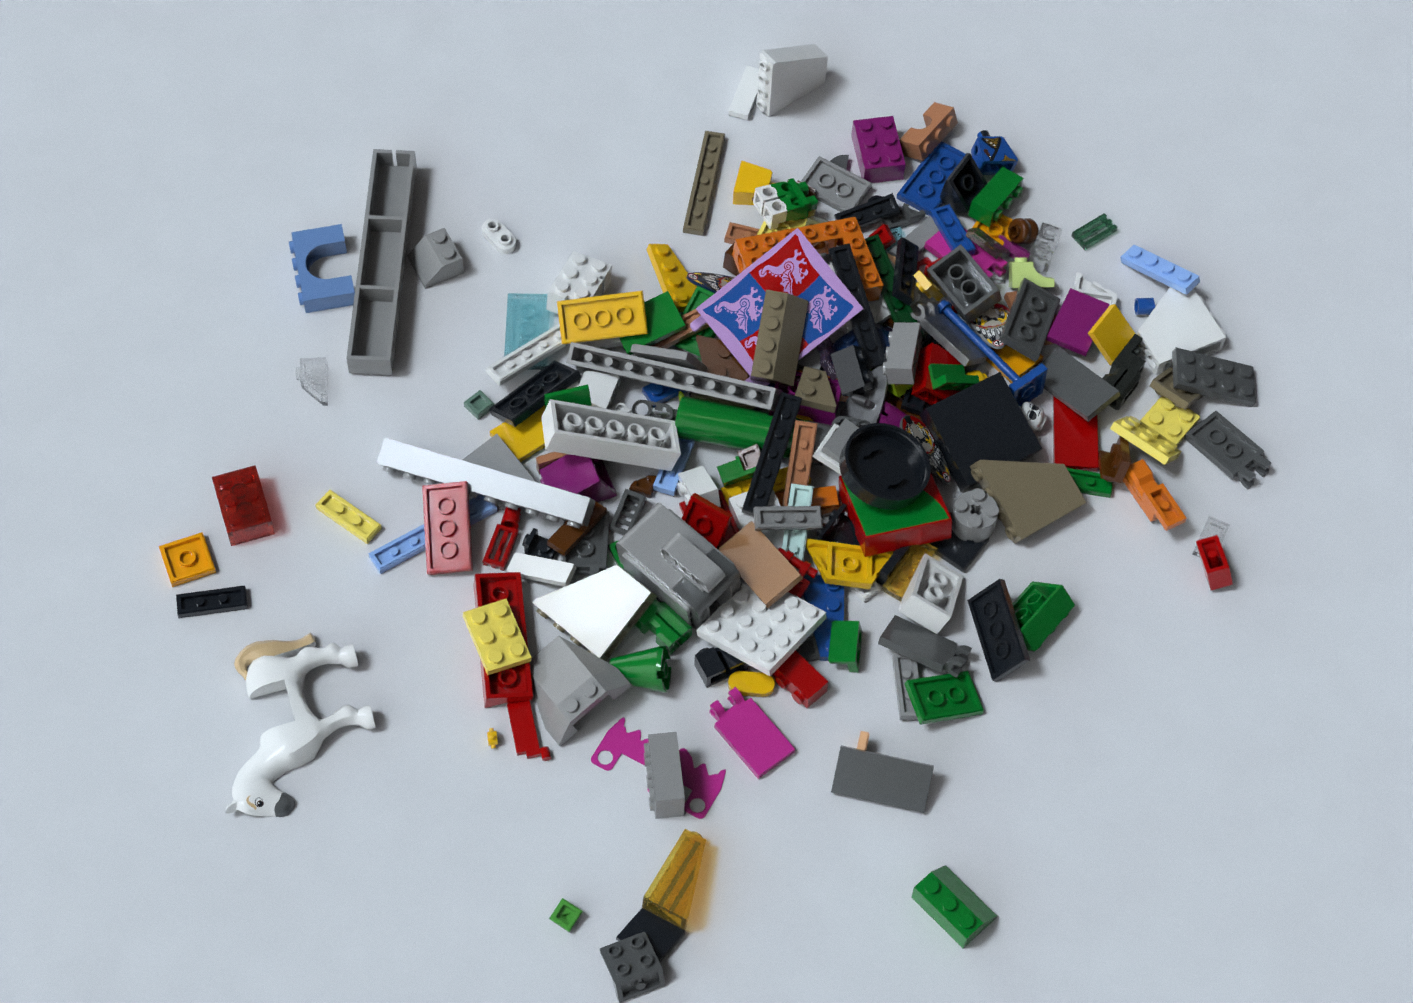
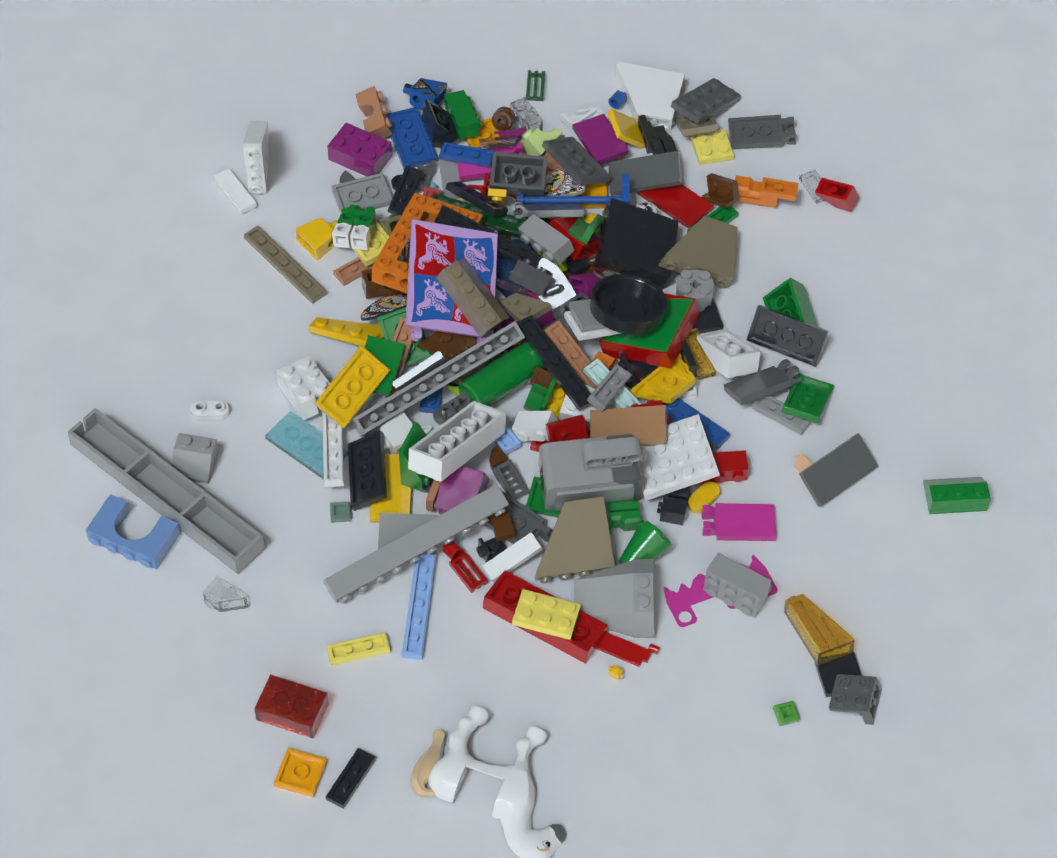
camera: 50 degrees left, 5 degrees down
(447, 528) = (430, 590): tile -> none
(845, 644) = (723, 423): green panel -> none
(1146, 439) = (719, 165): light yellow plate -> none
(1160, 269) = (602, 70): light blue plate -> none

